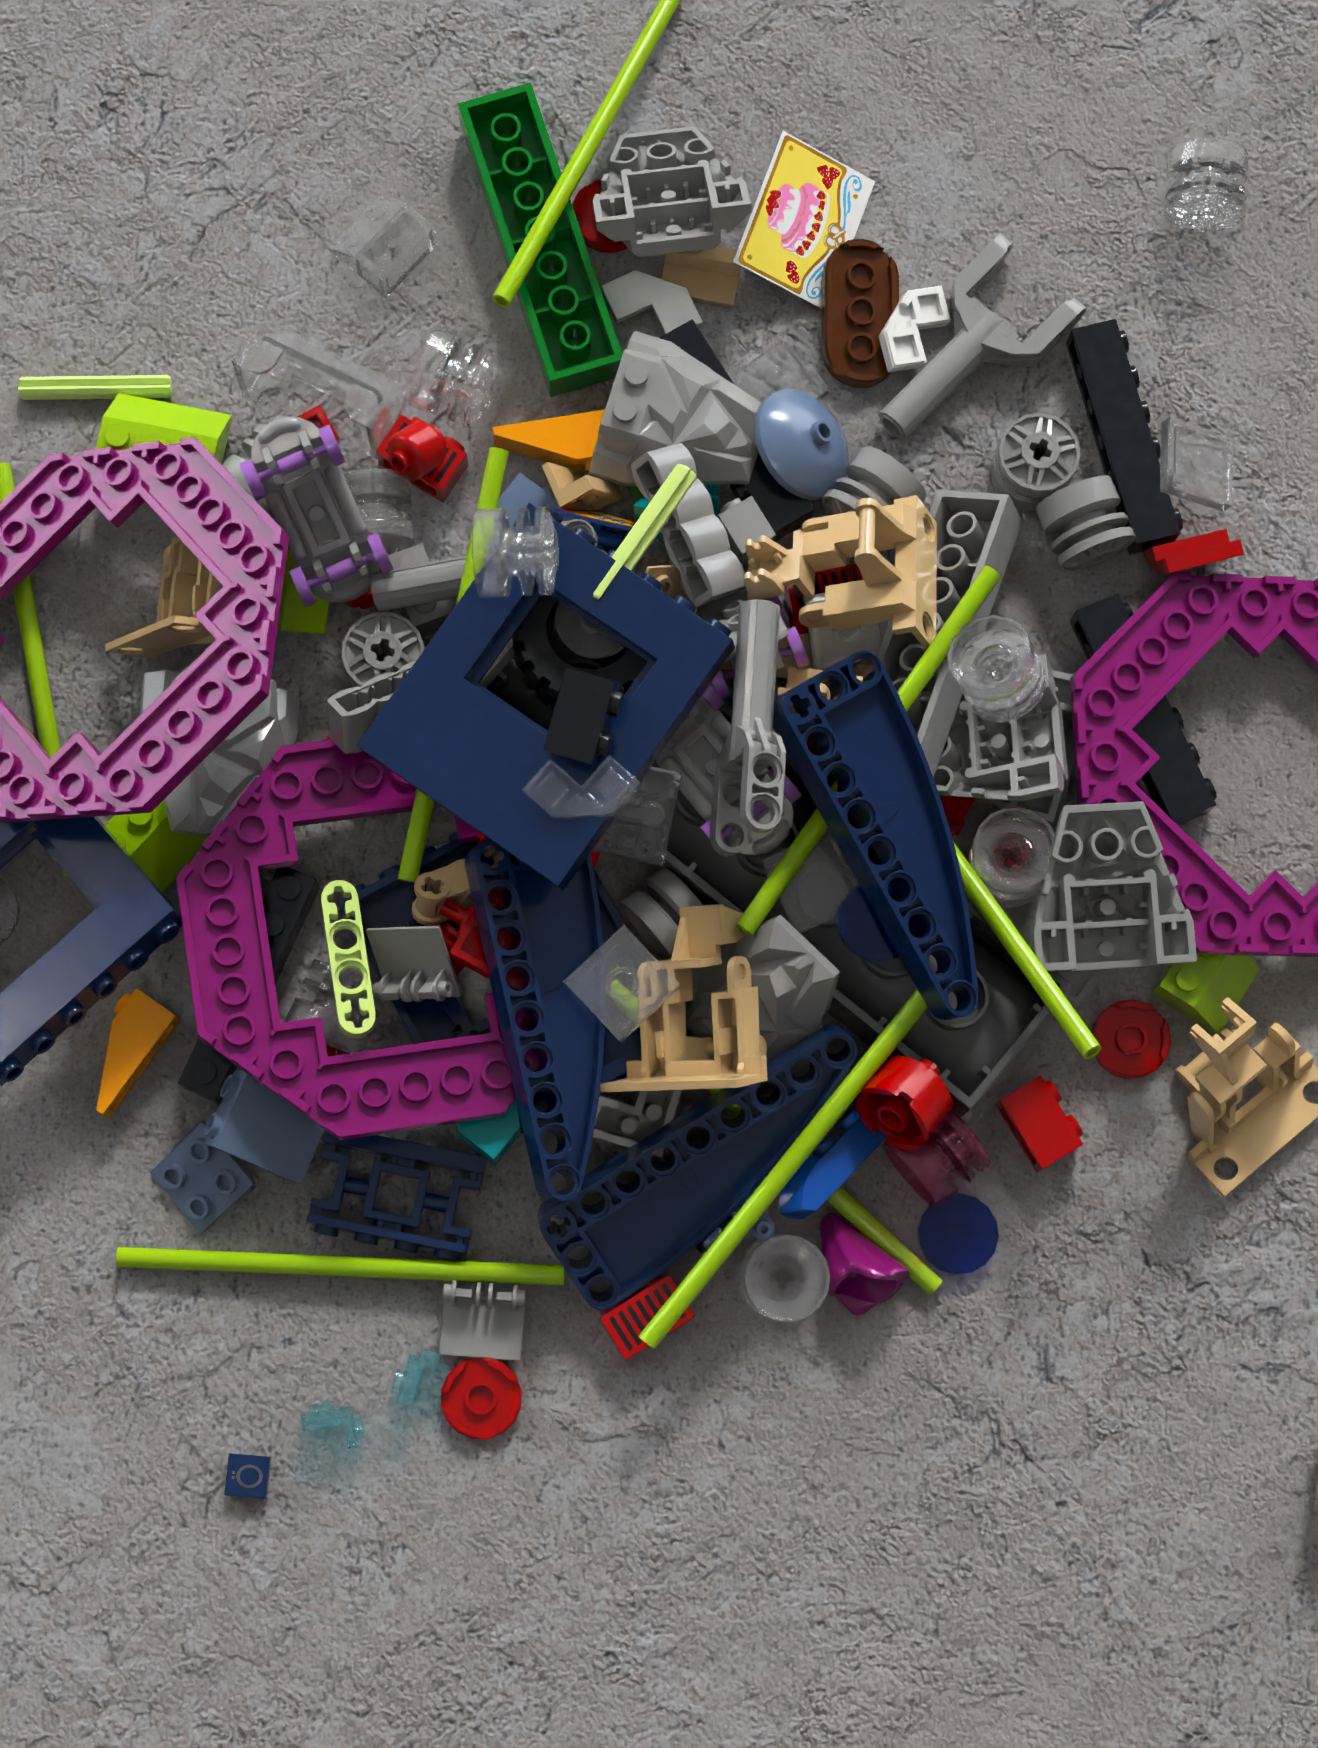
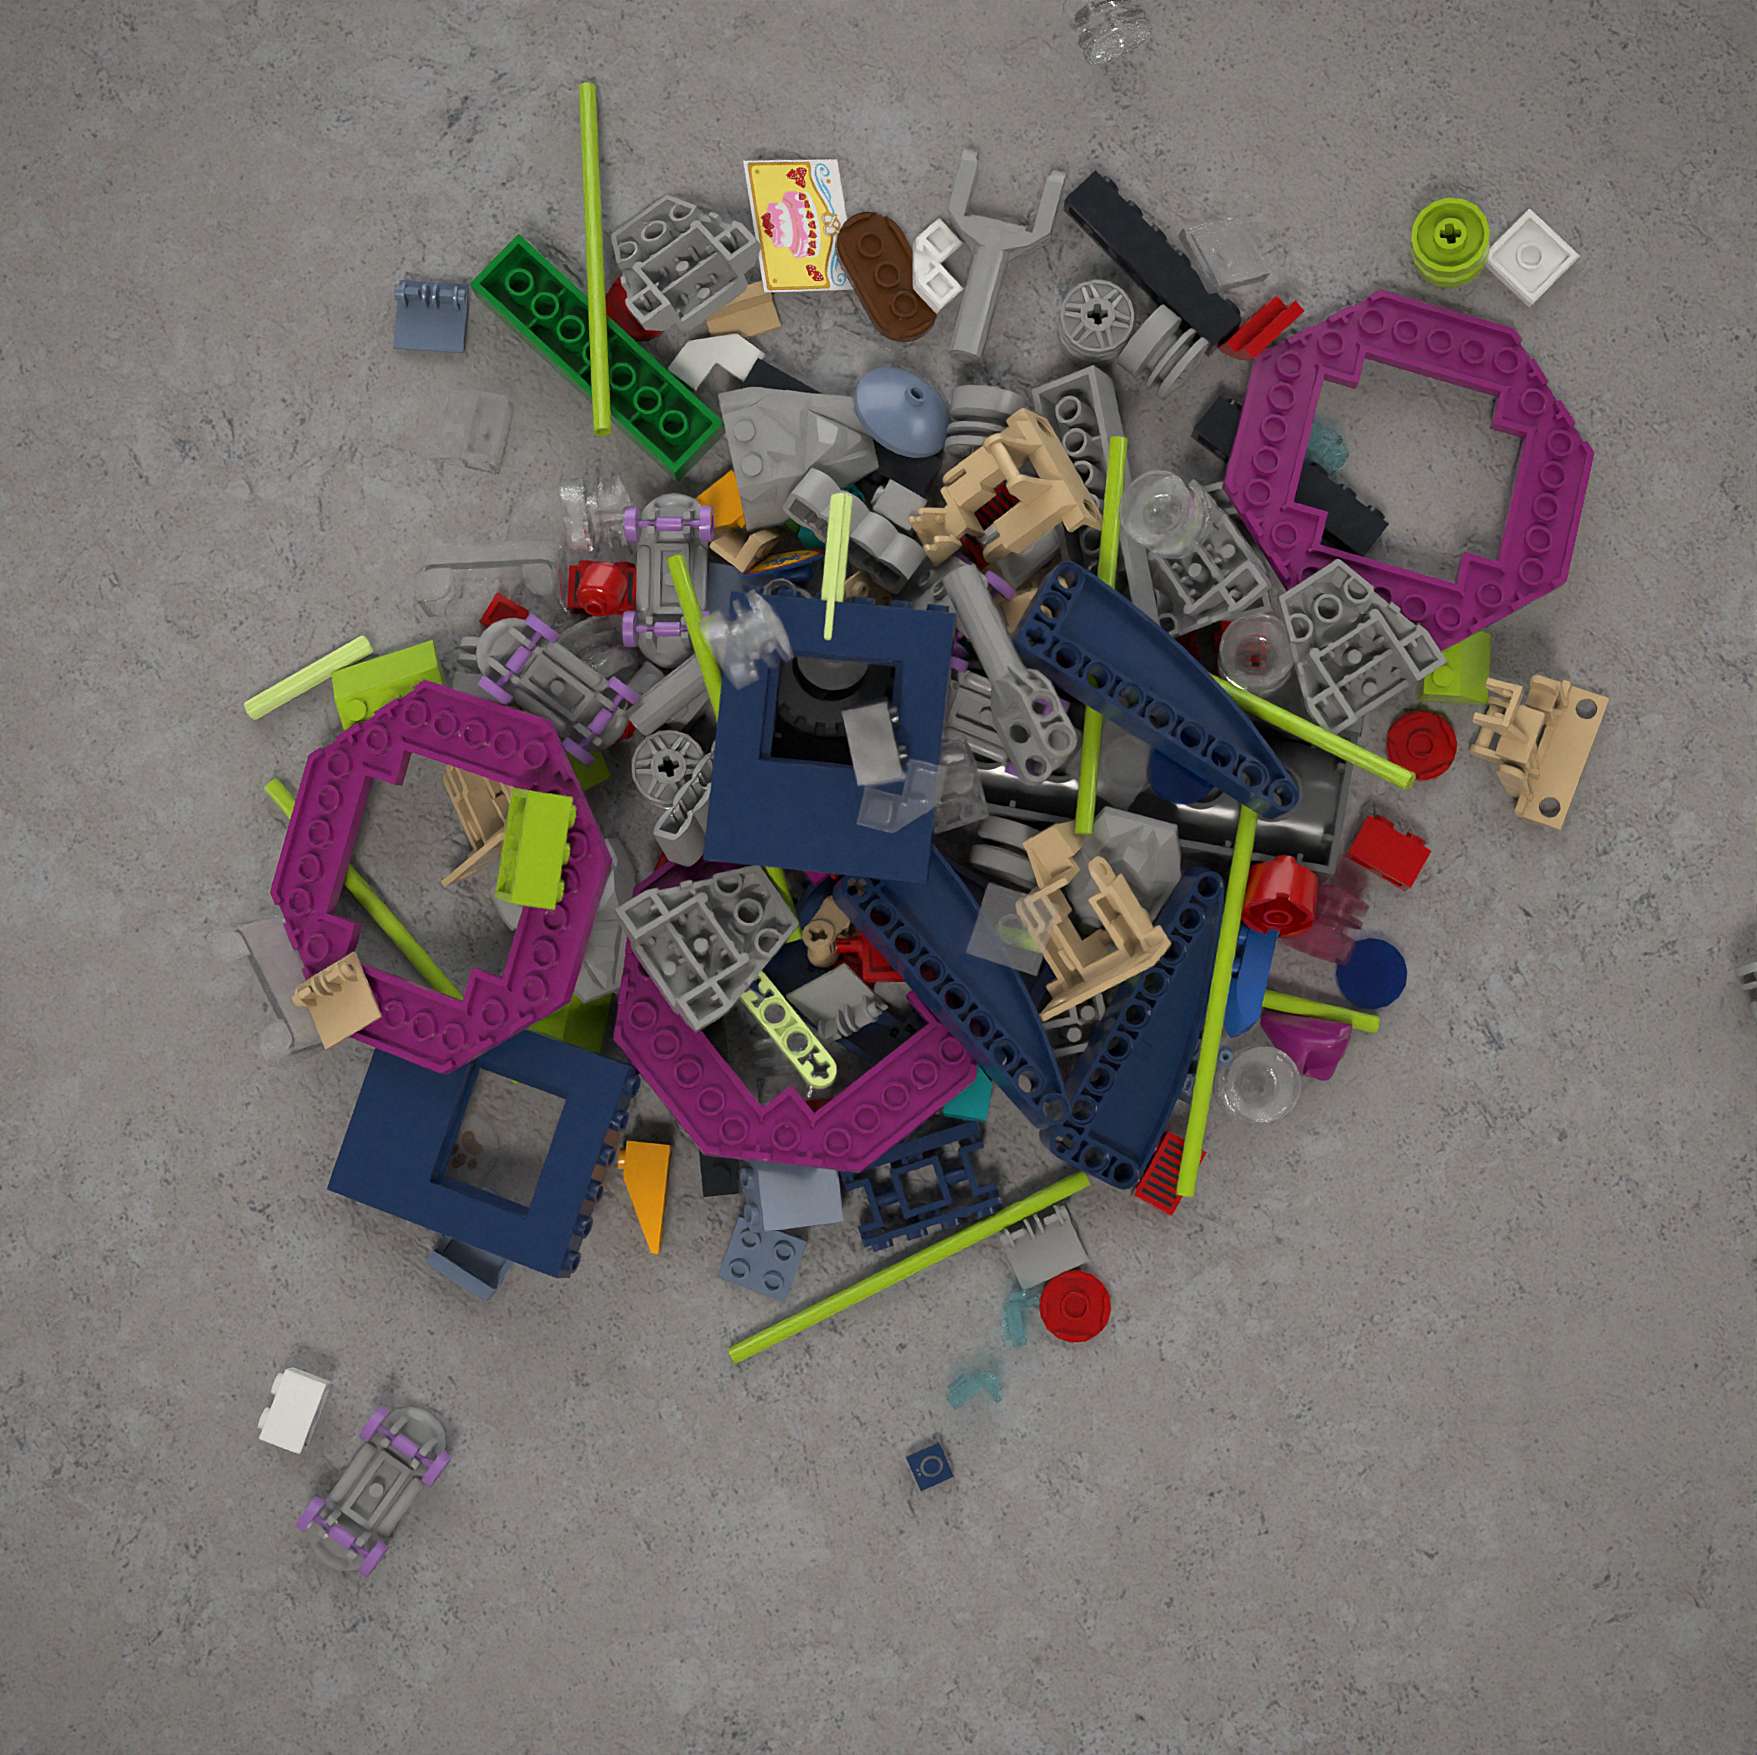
camera: 20 degrees left, 5 degrees up
(201, 644) = (534, 848): none -> lime slope
(321, 829) = (707, 939): none -> light grey wedge
(407, 118) = (430, 316): none -> sand blue hinge
(514, 424) = (665, 529): none -> light grey piece
(1193, 700) = (1326, 448): none -> clear light blue bracket

